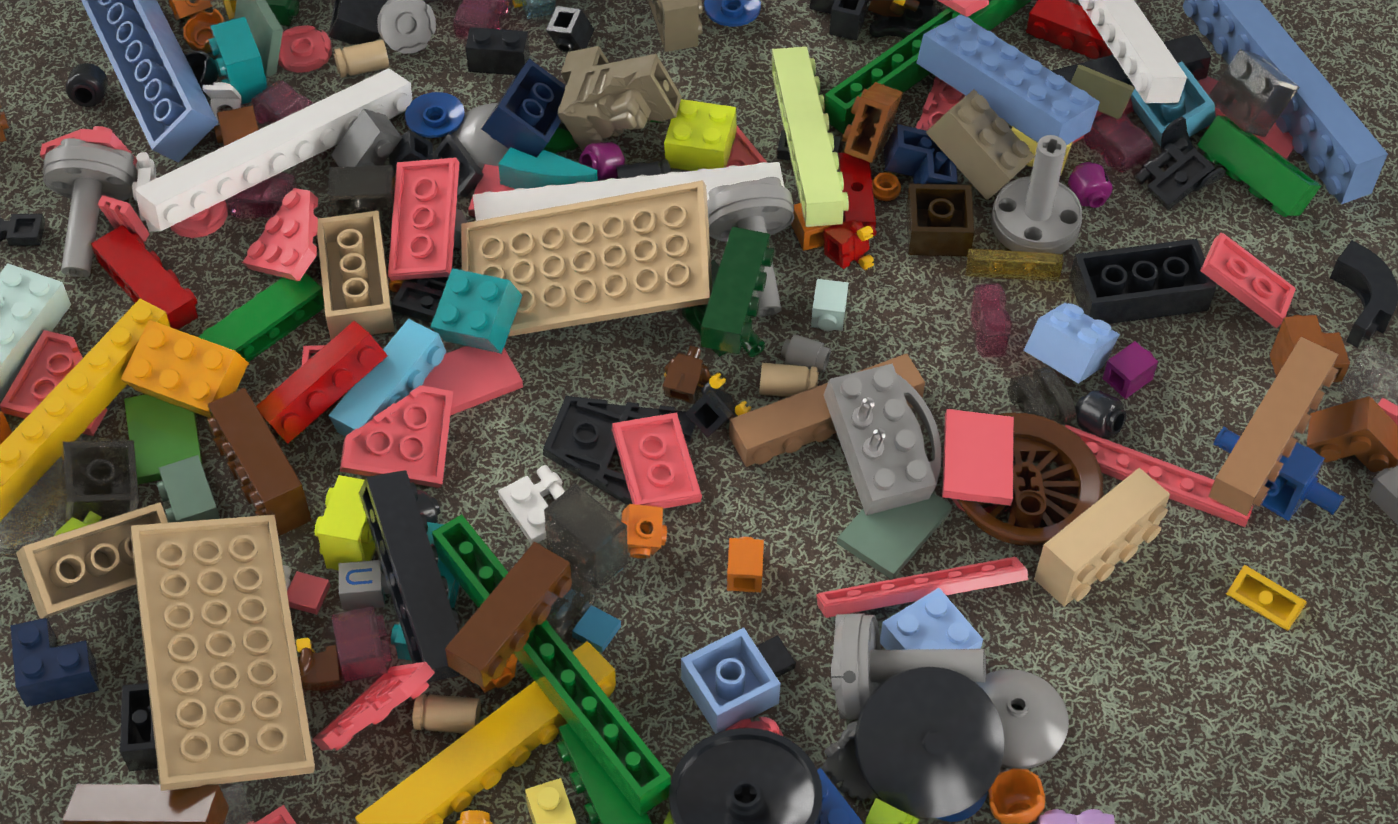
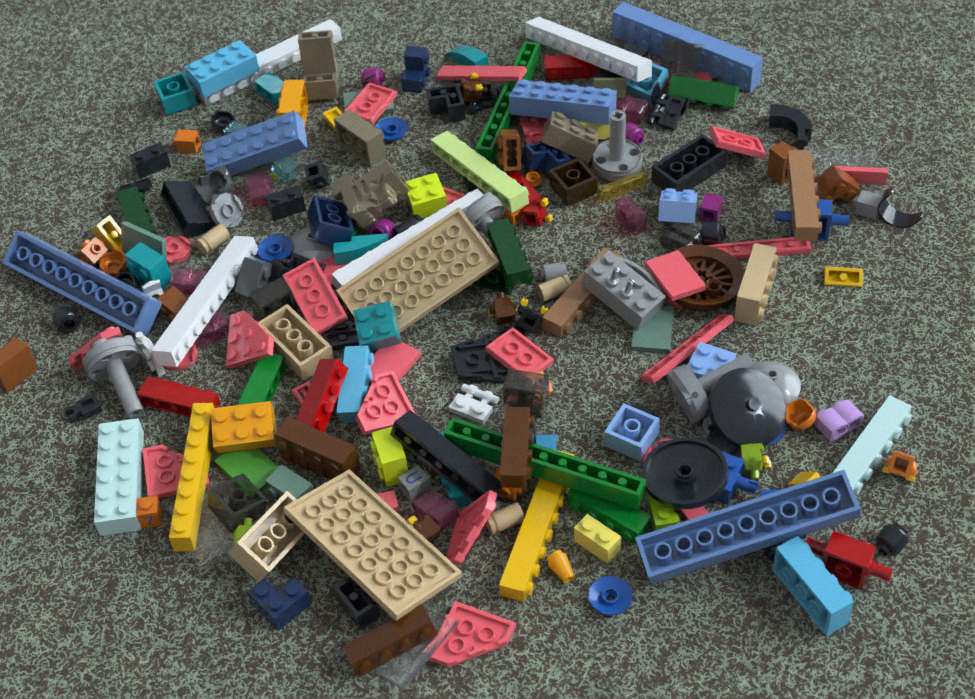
camera: 25 degrees left, 5 degrees down
(124, 216) = (135, 366): coral tile -> none
(745, 564) = (597, 379): orange brick -> none
(829, 305) = (548, 244): light aqua brick -> none

